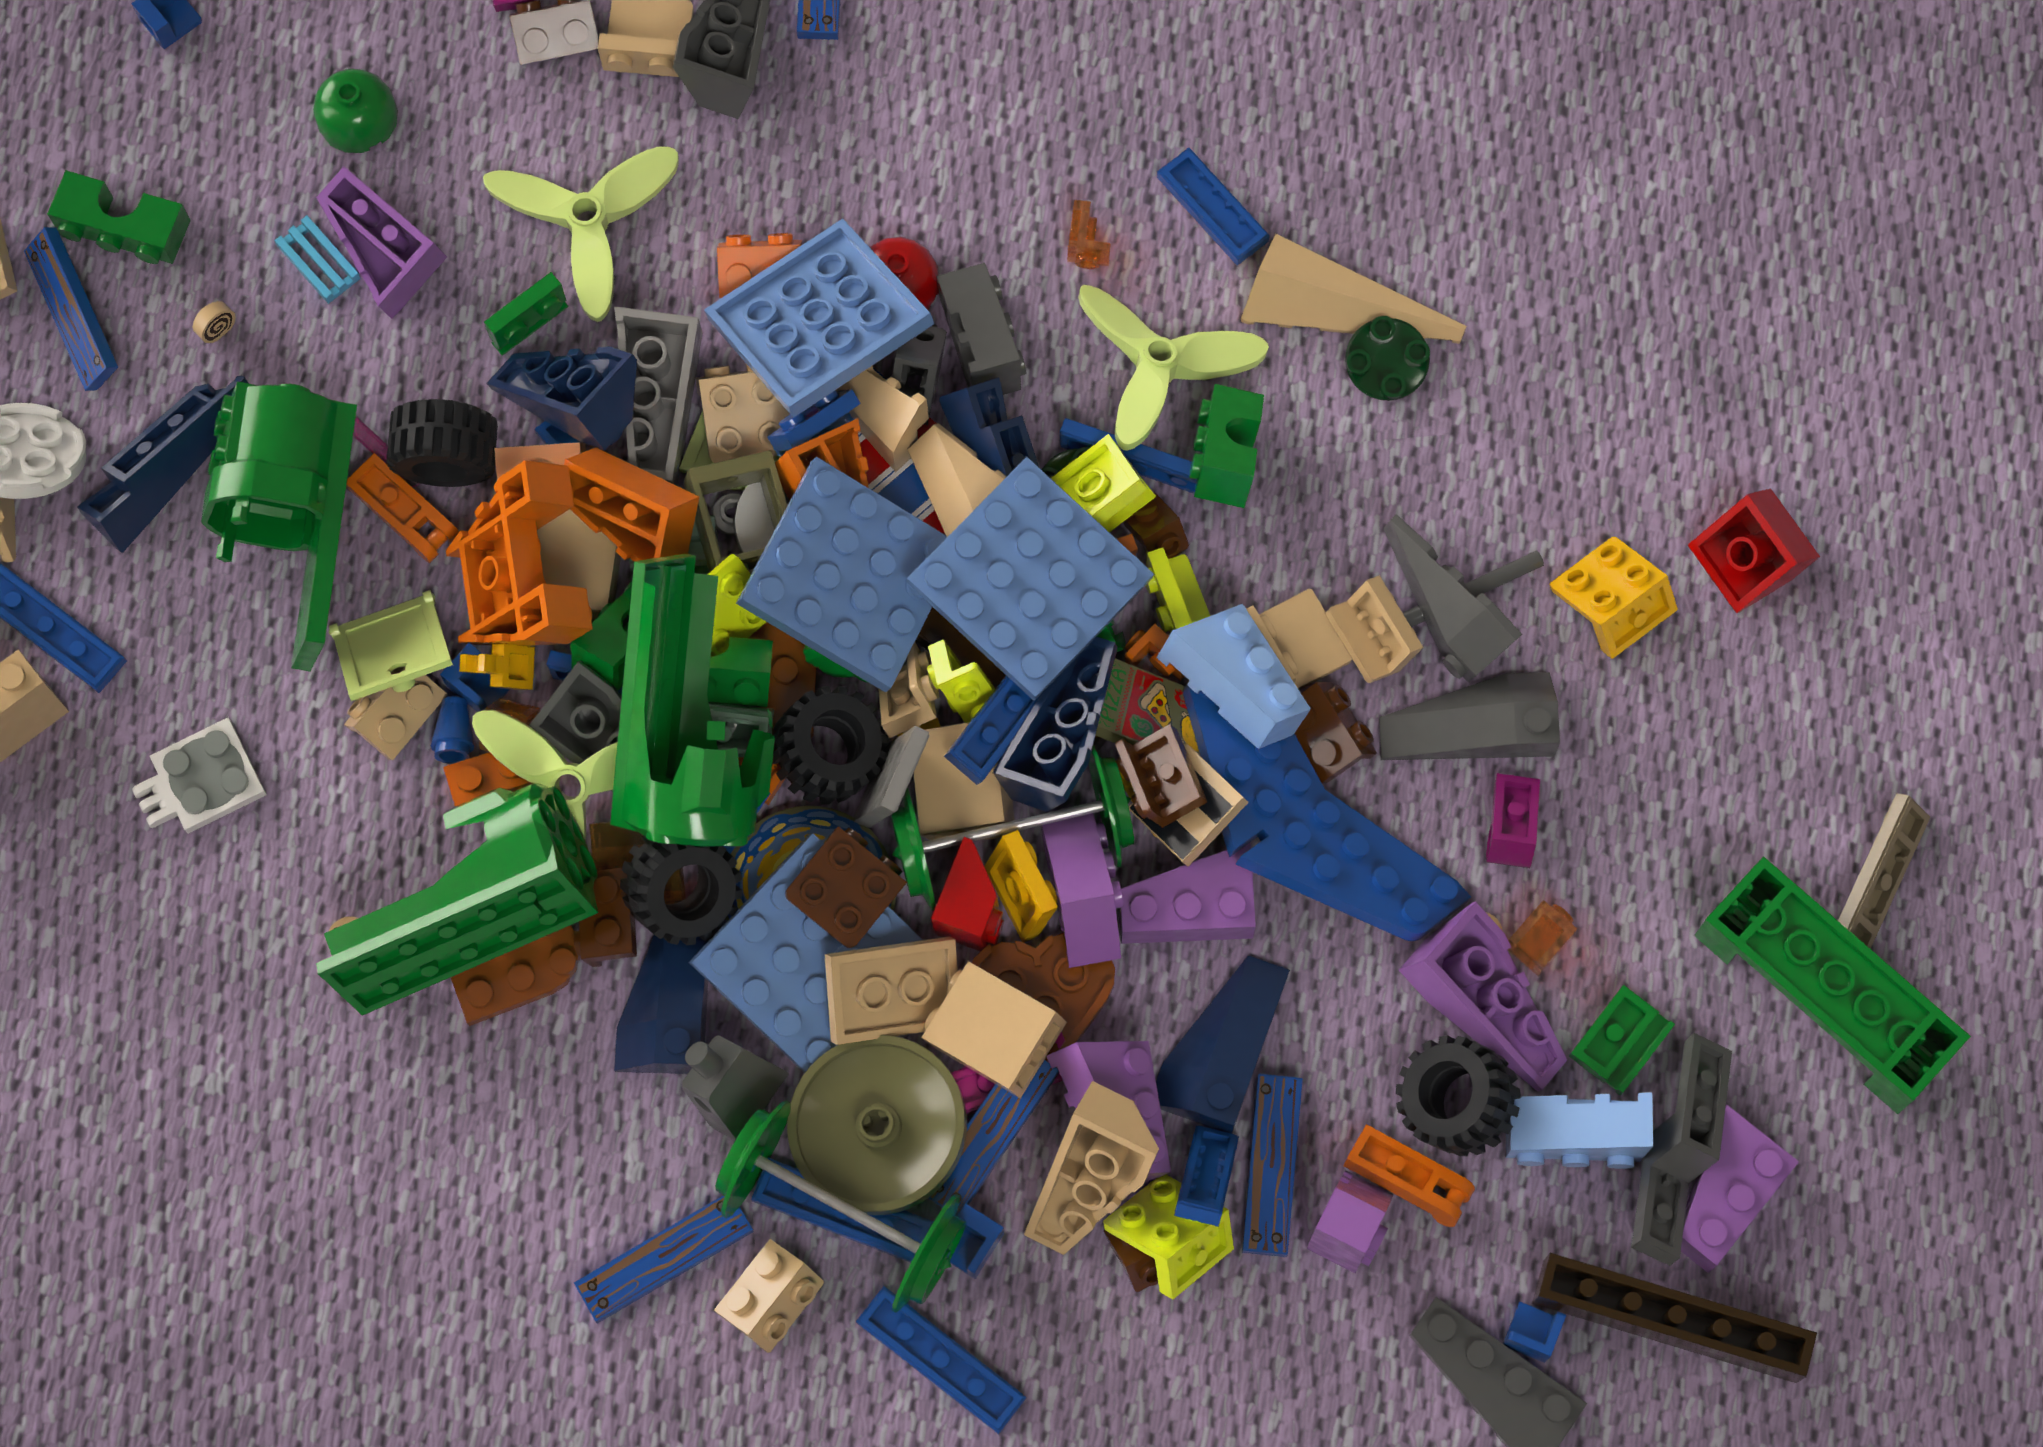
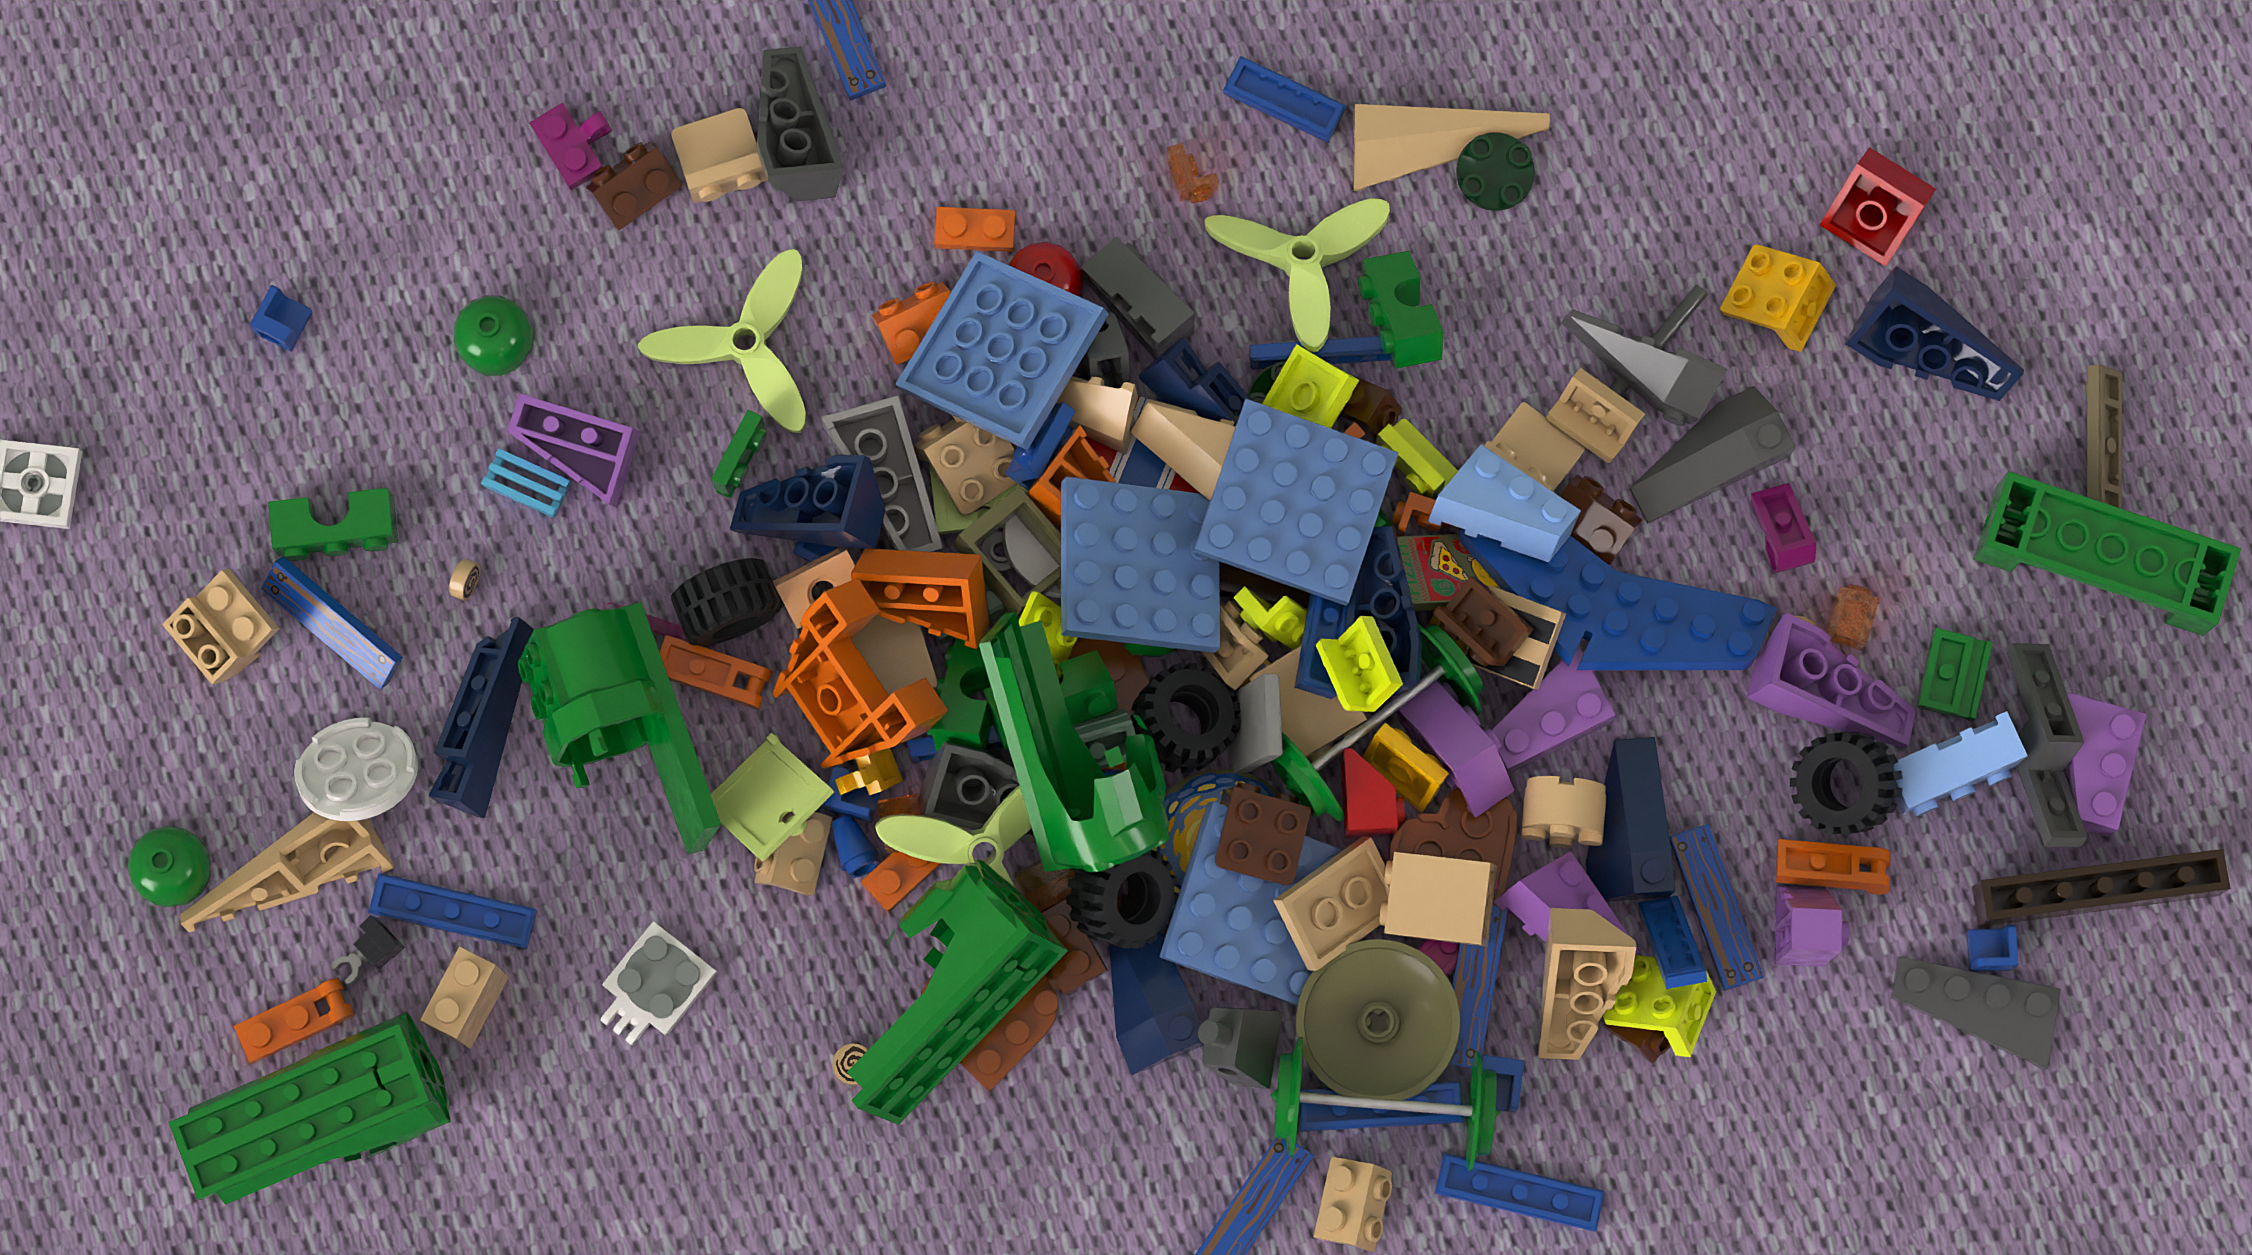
camera: 25 degrees left, 5 degrees up
(857, 203) = (974, 229): none -> orange plate
(1013, 761) = (1360, 666): none -> neon yellow bracket
(1160, 999) = (1564, 811): none -> tan brick
(1744, 691) = (1921, 331): none -> dark blue wedge

